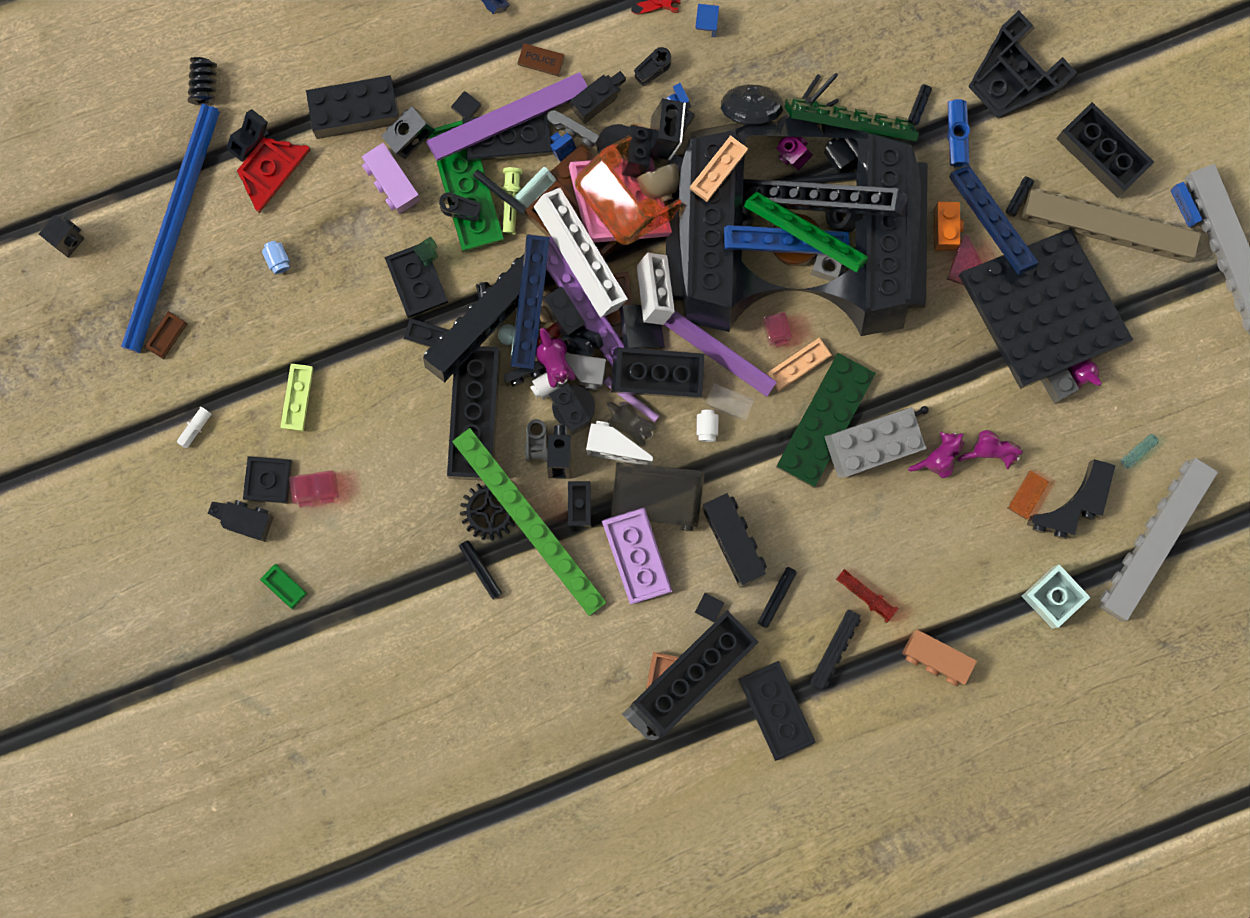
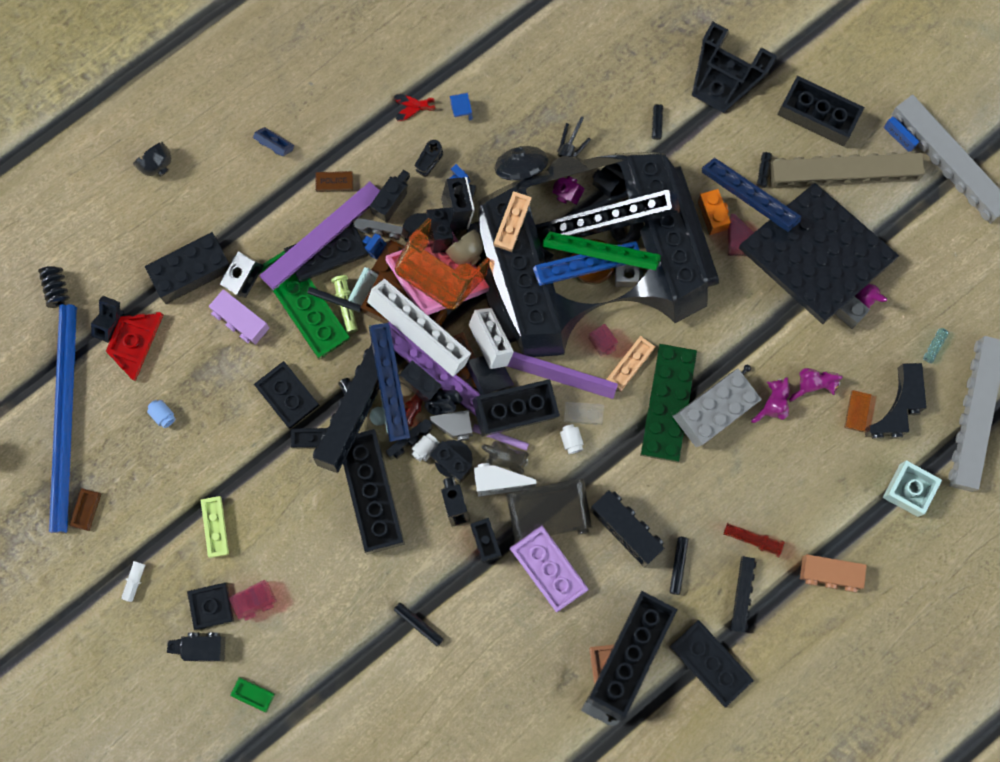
camera: 15 degrees left, 5 degrees down
(426, 251) = (287, 367): clear green piece -> none
(461, 208) = (306, 322): black piece -> none
(466, 105) = (283, 237): black tile -> none
(479, 512) = (419, 567): black gear -> none
(529, 521) = (447, 569): bright green plate -> none
(536, 443) = (432, 500): dark grey piece -> none
(552, 355) = (422, 420): magenta animal -> none
(709, 607) = (624, 593): black tile -> none
(857, 120) = (611, 148): dark green plate -> none
(958, 121) = (700, 144): blue piece -> none

